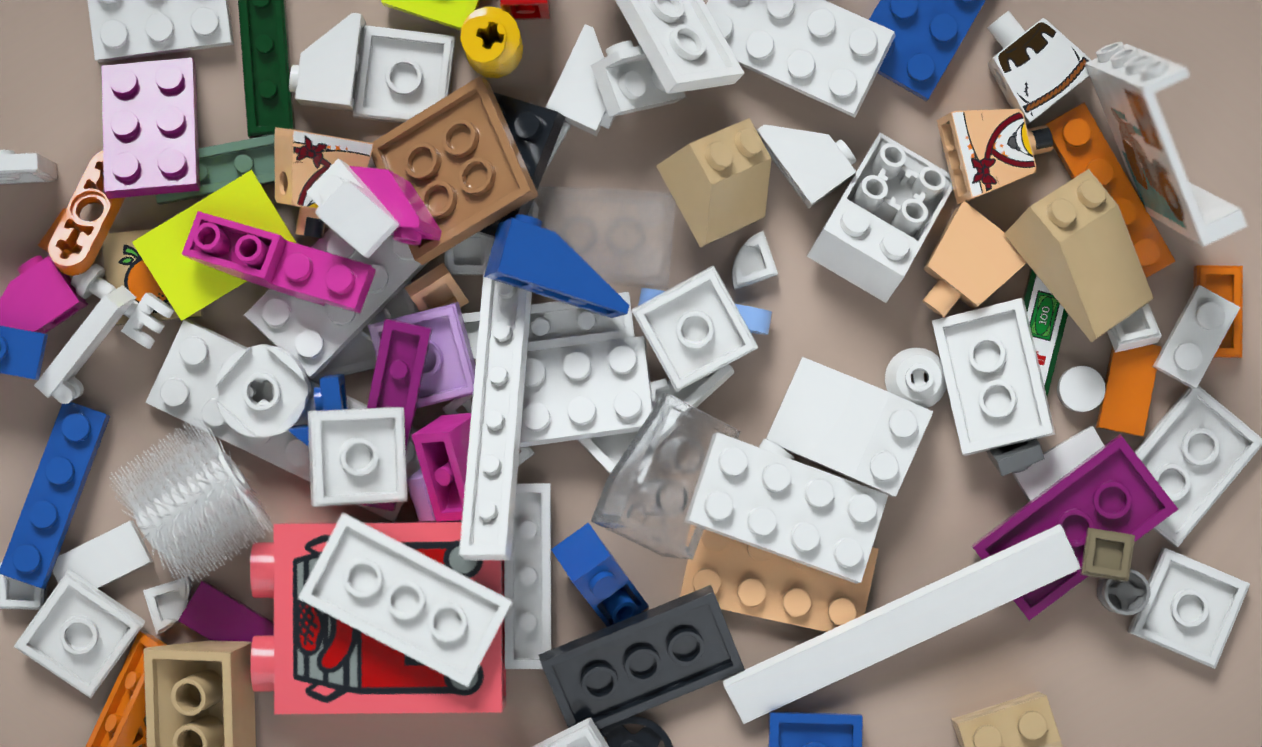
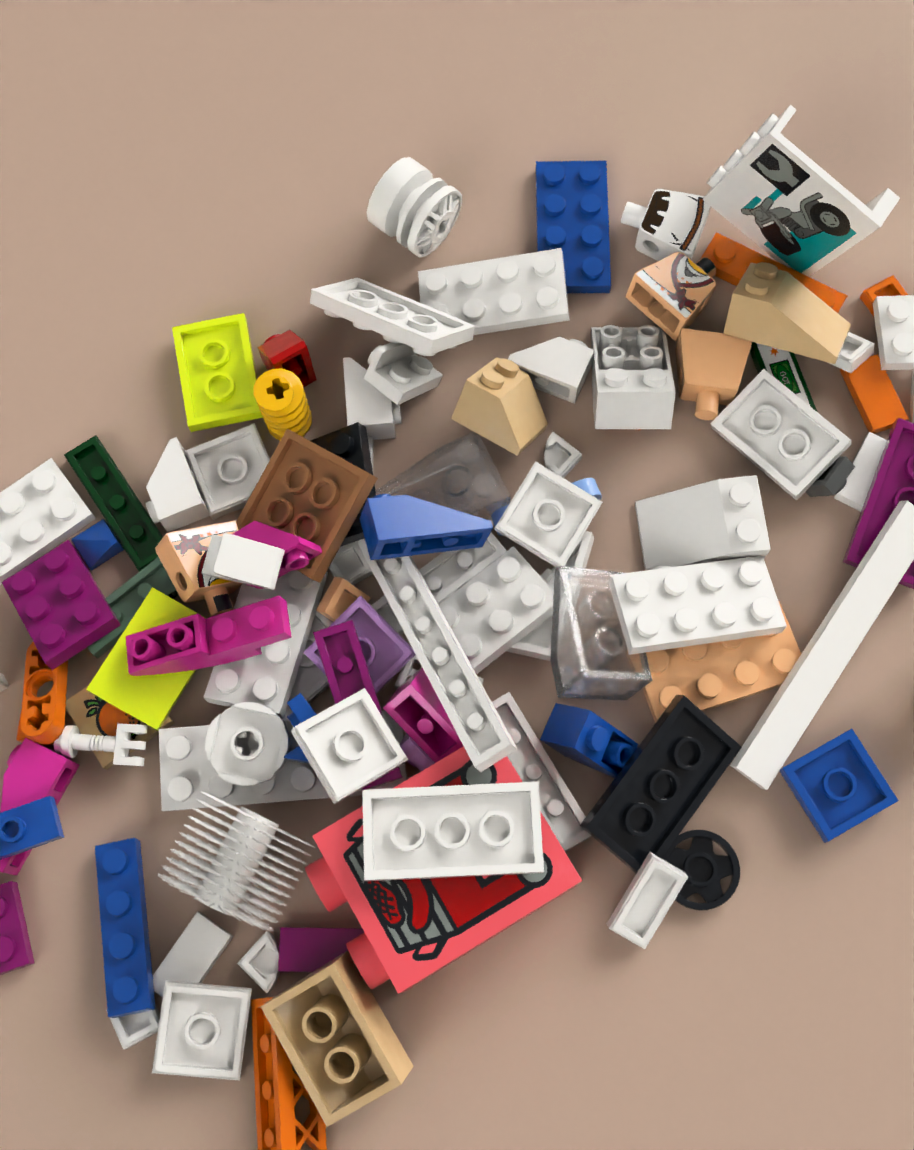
camera: 25 degrees left, 15 degrees down
(60, 377) = (86, 791): white hinge -> none
(220, 77) = (97, 544): none -> blue slope
(916, 362) = (724, 463): white cone -> none
(1081, 388) = (844, 412): white tile -> none

